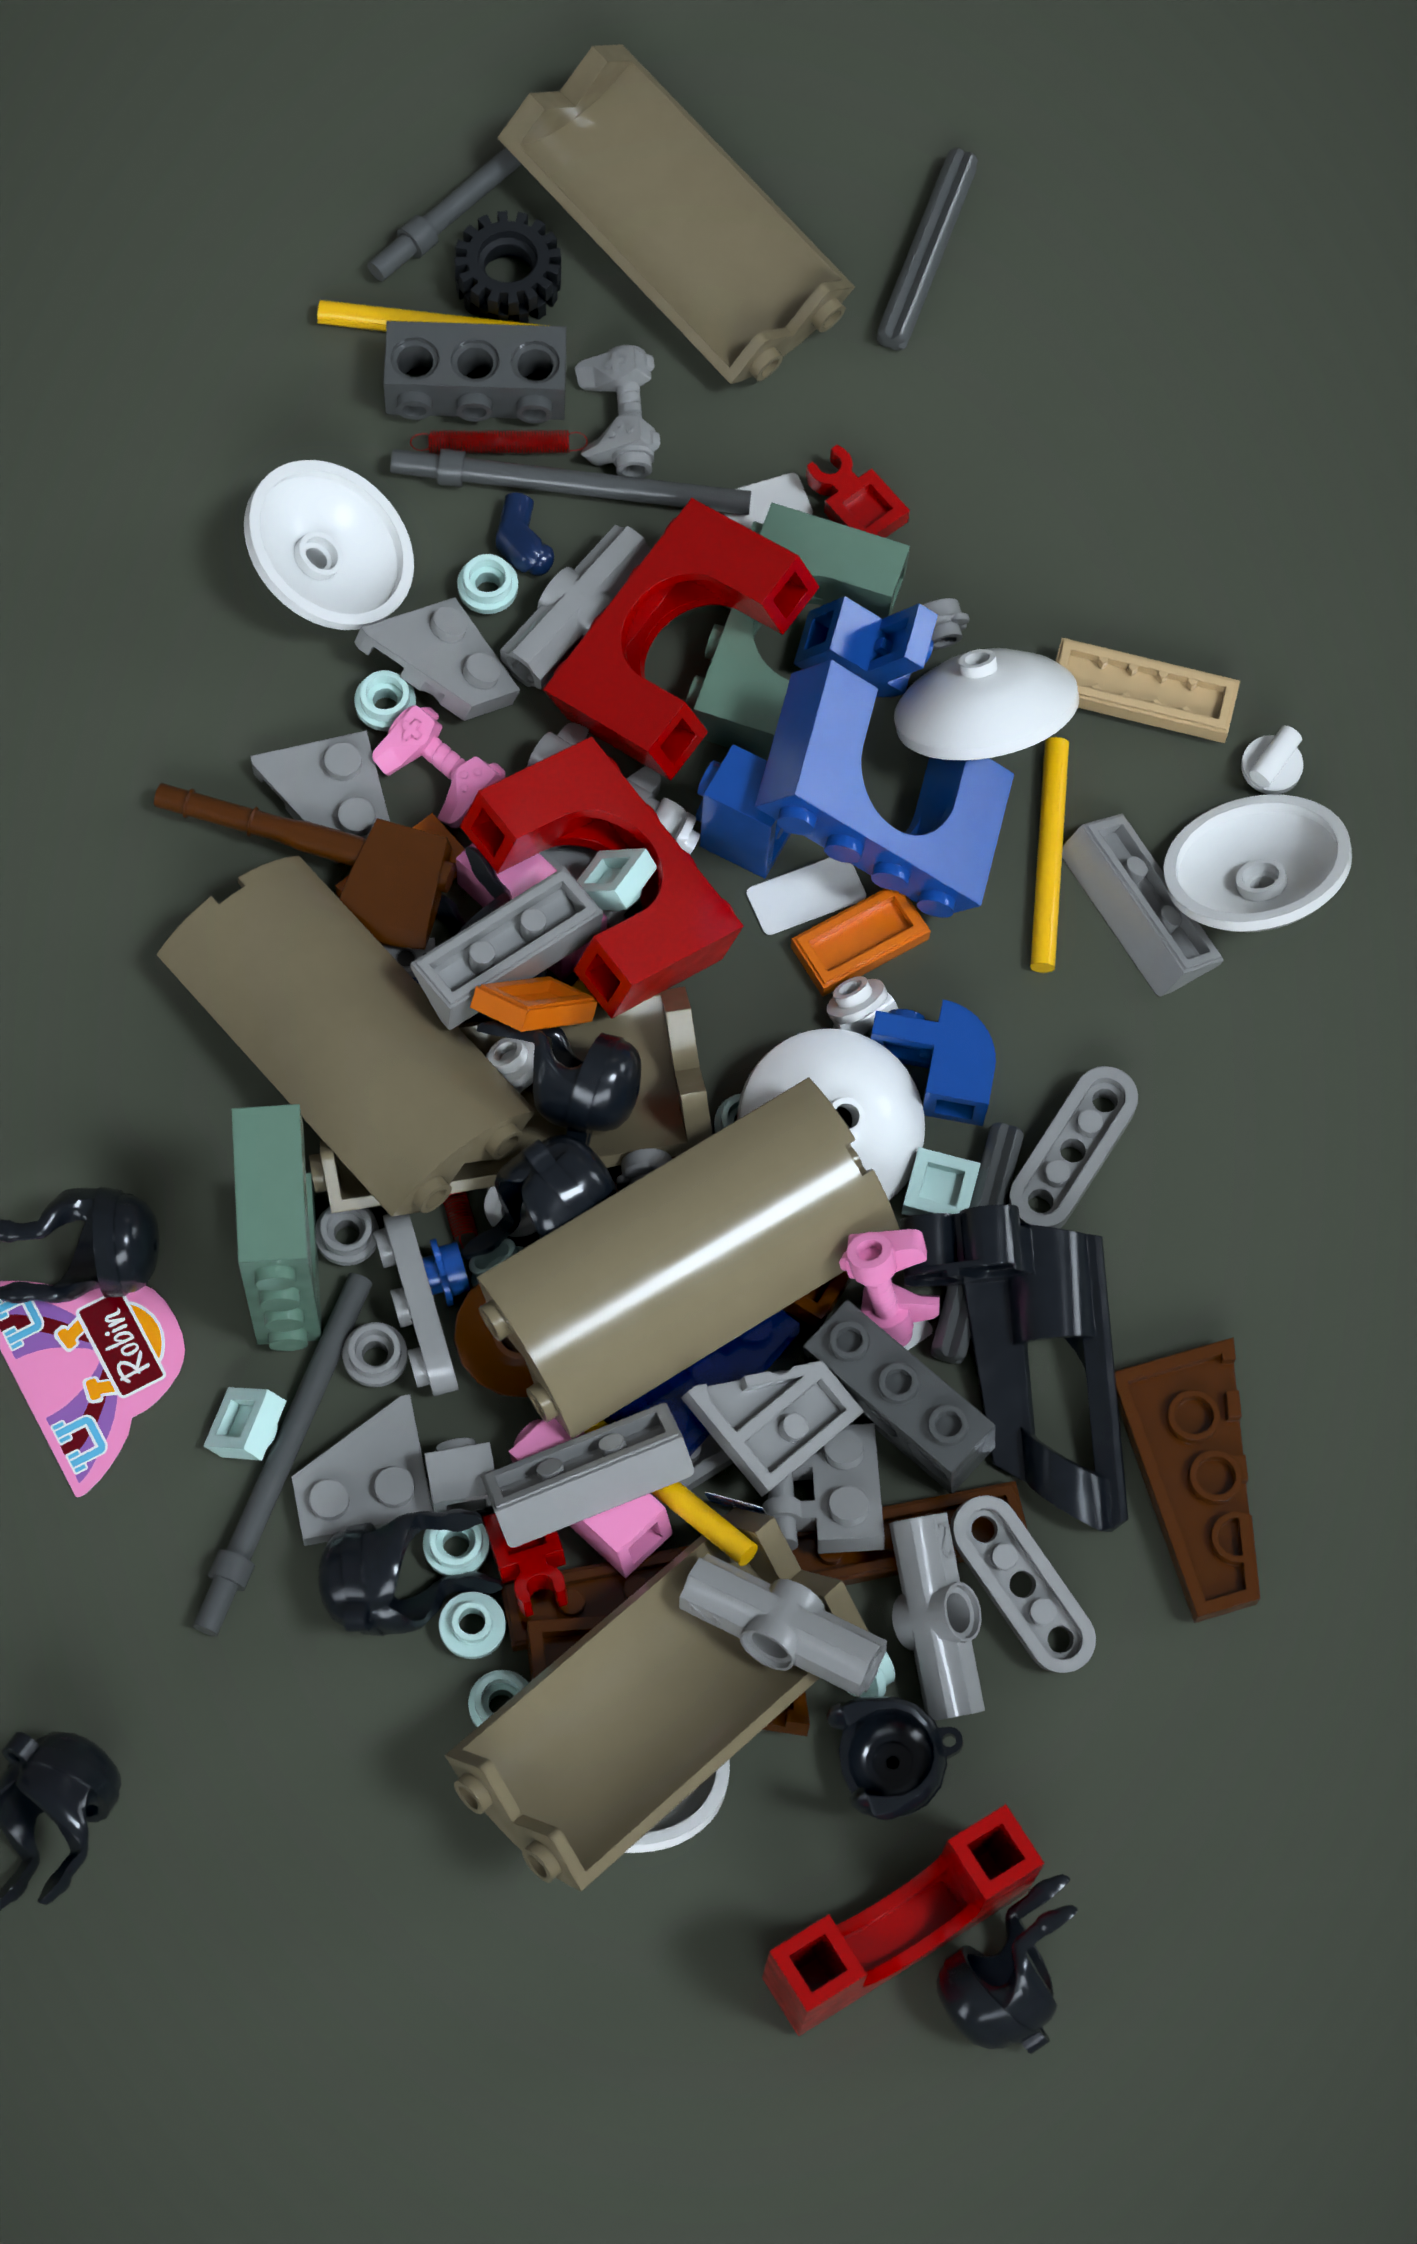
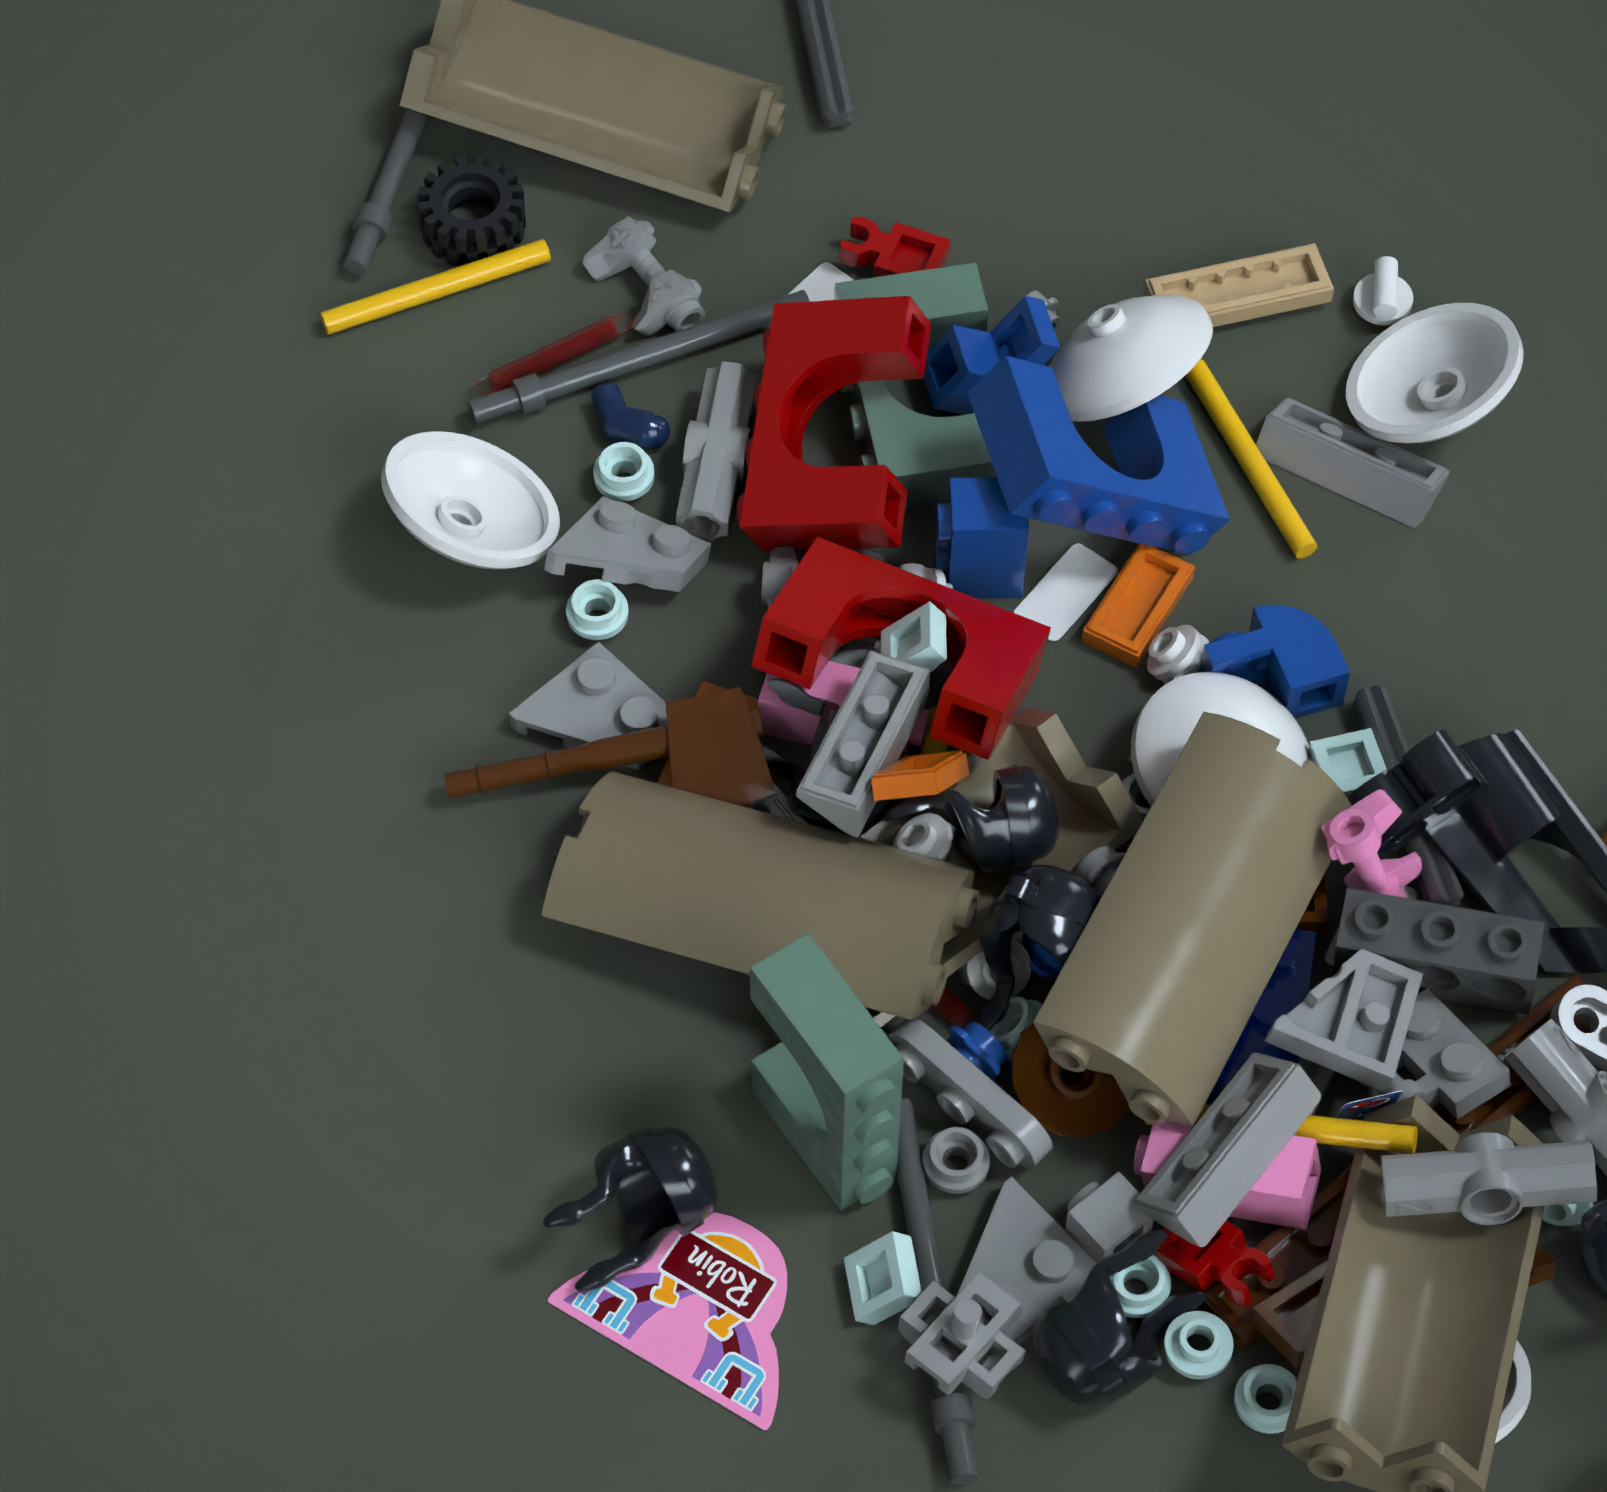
camera: 25 degrees left, 10 degrees down
(275, 1509) = (965, 1326): none -> light grey piece
(416, 735) = (725, 638): bright pink piece -> none
(457, 349) = (499, 303): dark grey brick -> none
(1082, 1128) = (1437, 662): light grey plate -> none

